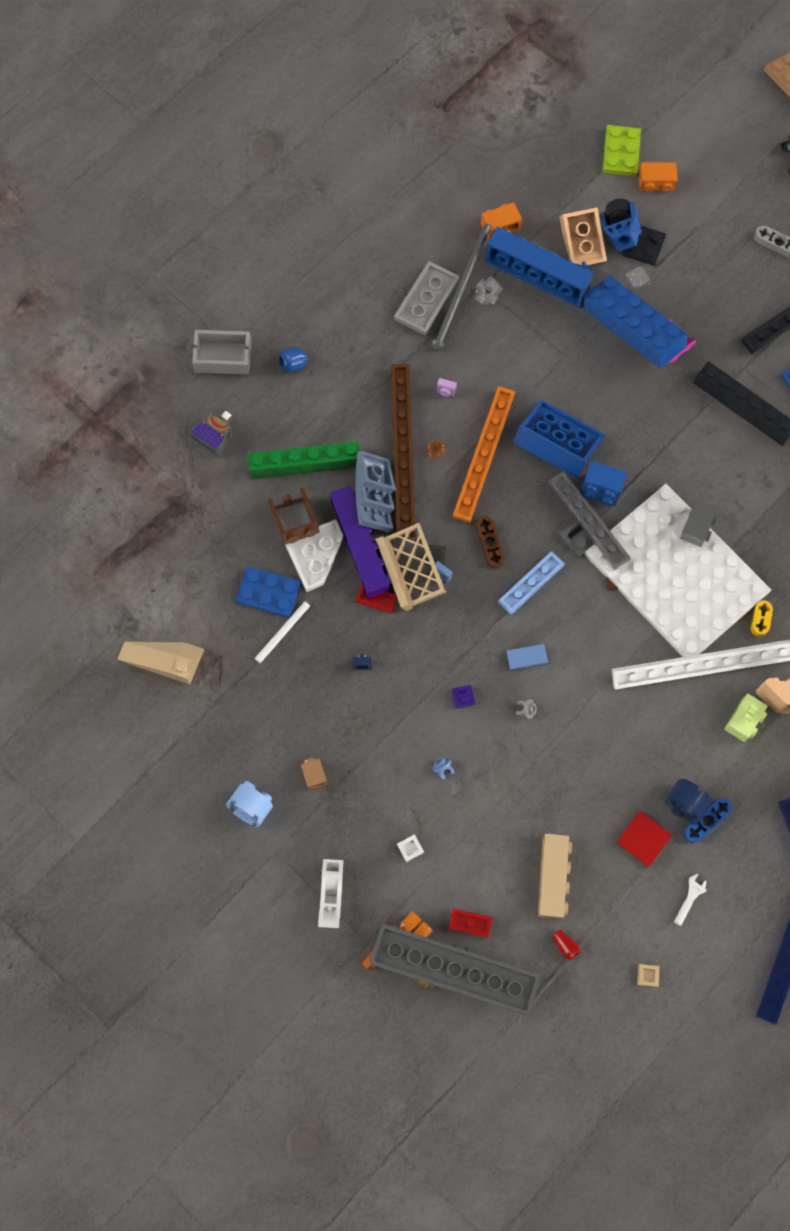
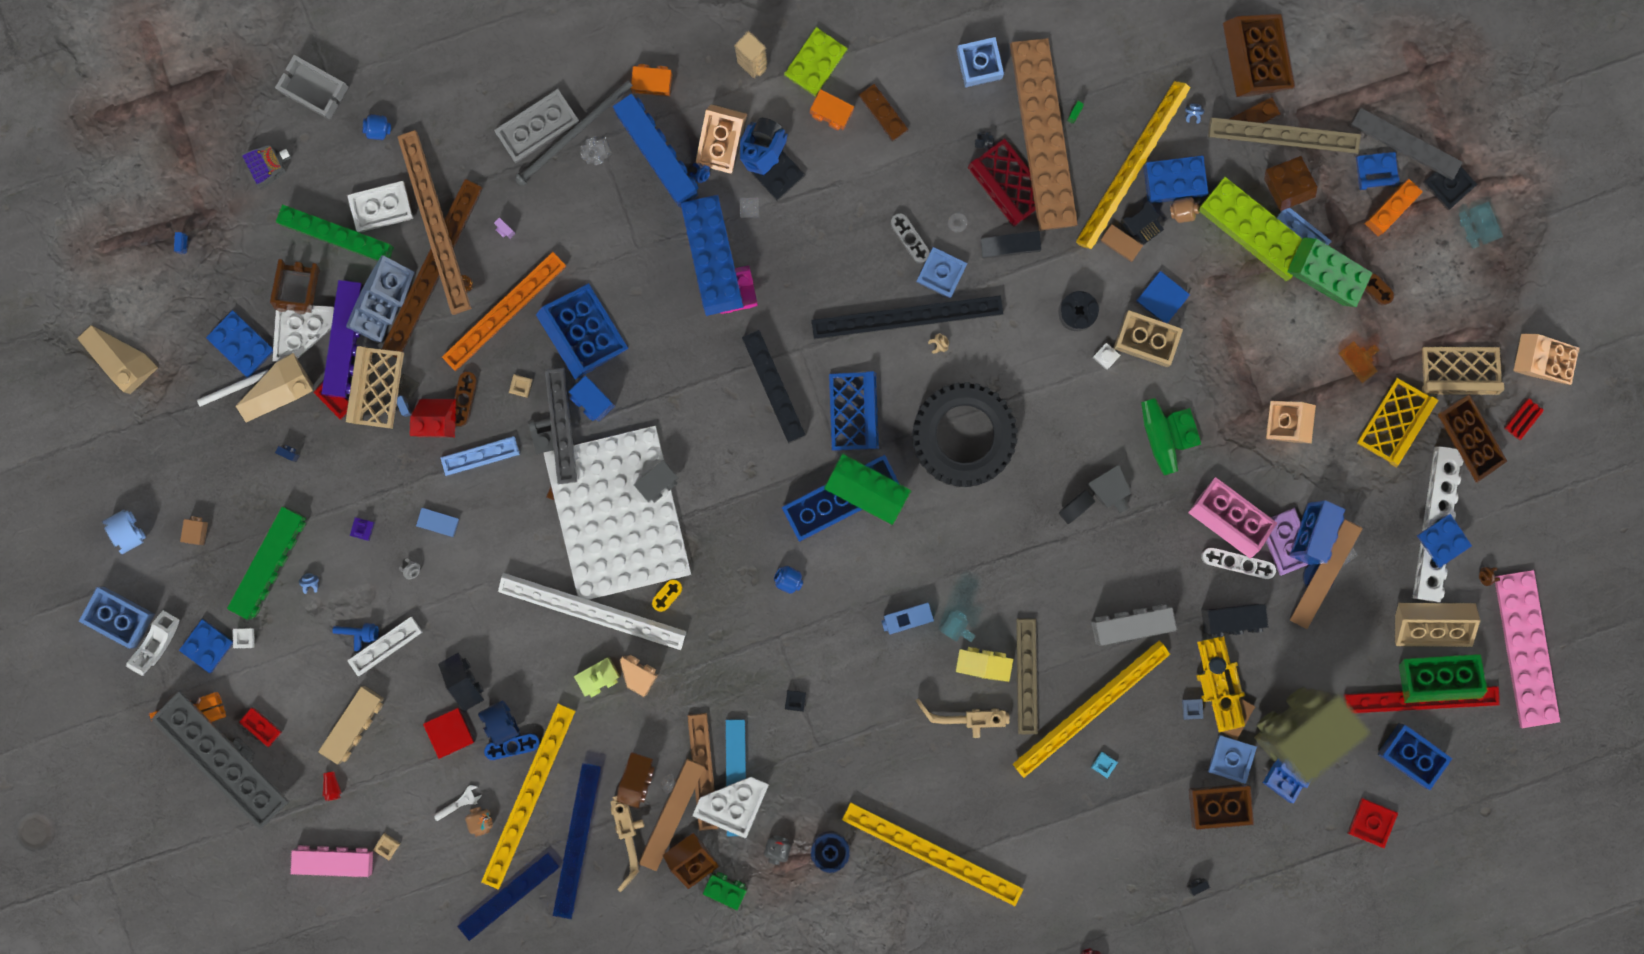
camera: 25 degrees right, 15 degrees up
(171, 531) = (180, 243): none -> blue tile
(283, 888) = (116, 617): none -> medium blue brick
(325, 606) = (278, 387): none -> tan wedge
(331, 420) = (380, 206): none -> white plate
(379, 874) = (206, 646): none -> blue plate
(387, 408) = (434, 222): none -> medium nougat plate
(395, 769) = (267, 563): none -> green brick
(476, 568) = (433, 418): none -> red slope
(522, 783) = (367, 633): none -> blue piece
(532, 508) = (520, 386): none -> tan tile
(543, 789) = (385, 646): none -> white plate
(577, 155) = (751, 55): none -> tan brick
(607, 1016) = (331, 862): none -> bright pink brick
(631, 781) = (461, 681): none -> black brick
(697, 162) = (883, 112): none -> reddish brown plate
(720, 903) = (479, 821): none -> medium nougat head
(750, 859) = (528, 796): none -> yellow plate
(751, 89) = (980, 62): none -> light blue brick

